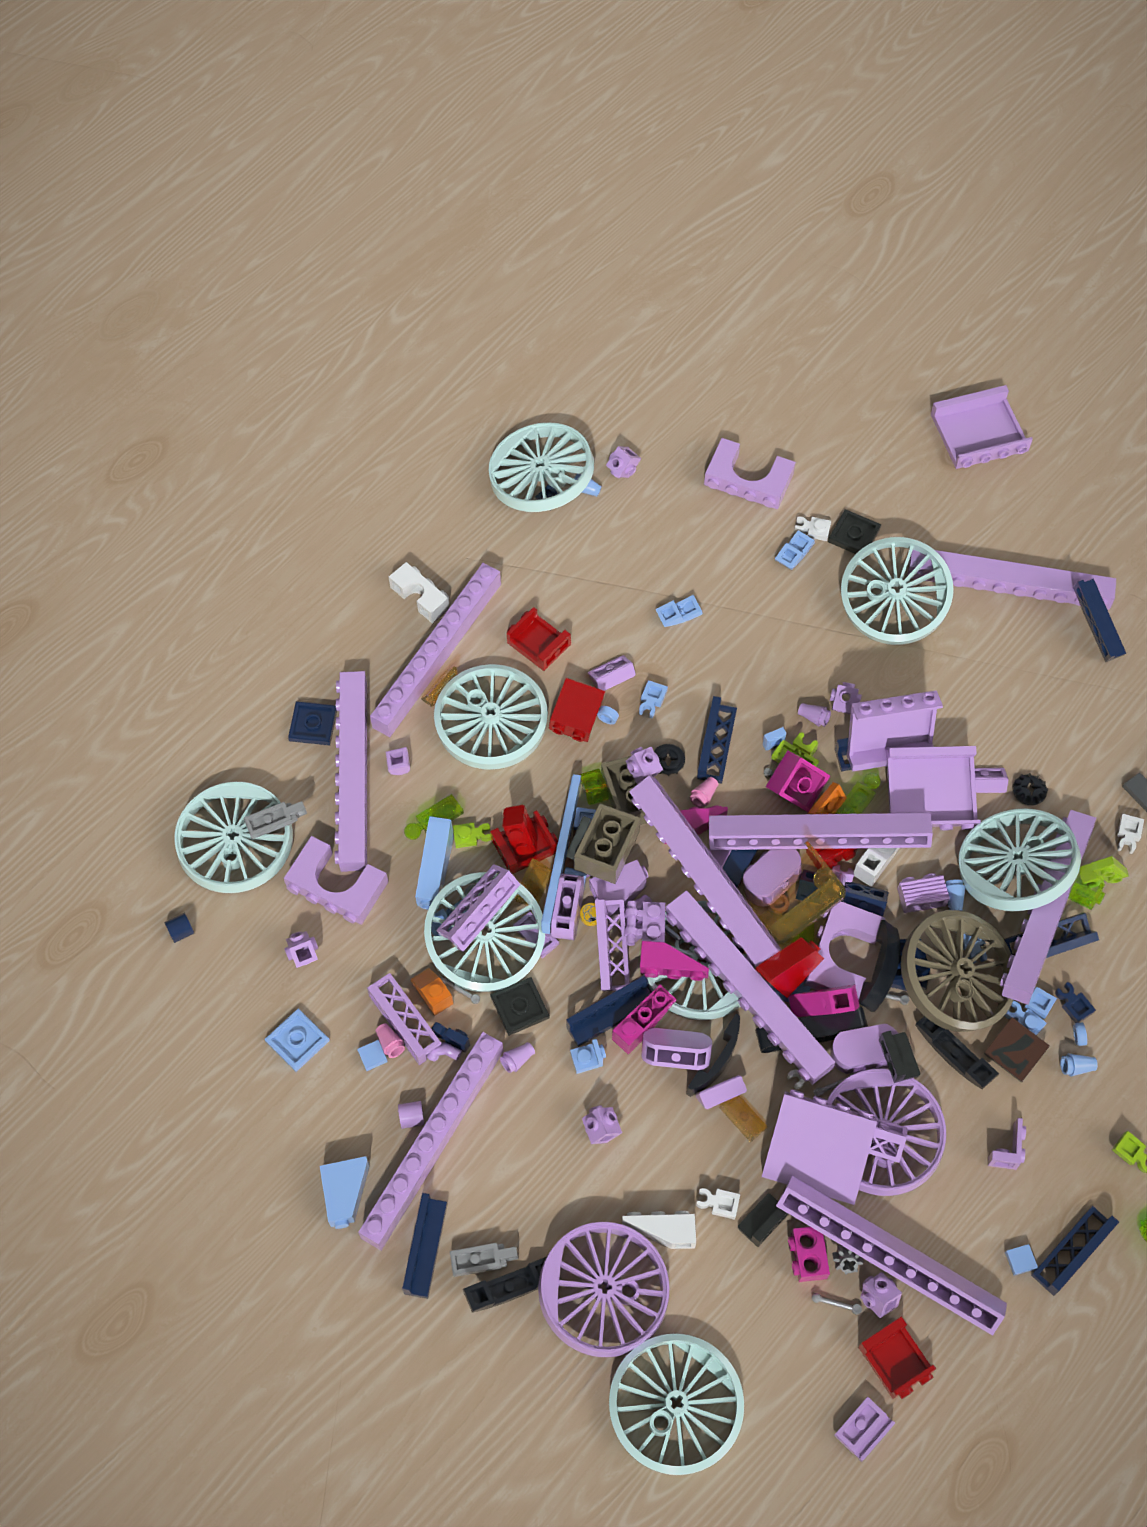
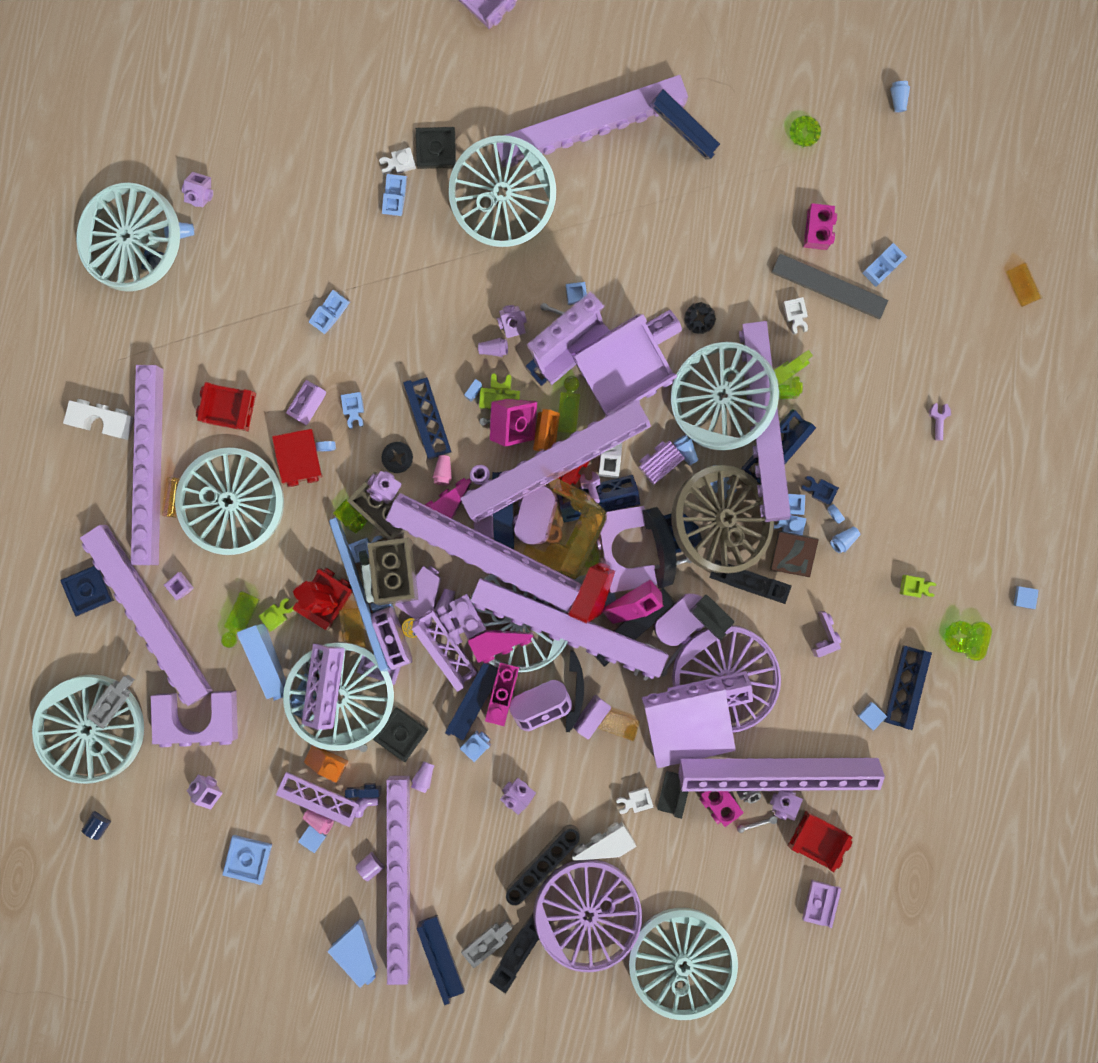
camera: 35 degrees left, 25 degrees up
(594, 1201) = (540, 874): none -> black beam
(739, 806) = (479, 471): none -> lavender cone
(766, 491) = (338, 148): lavender arch -> none

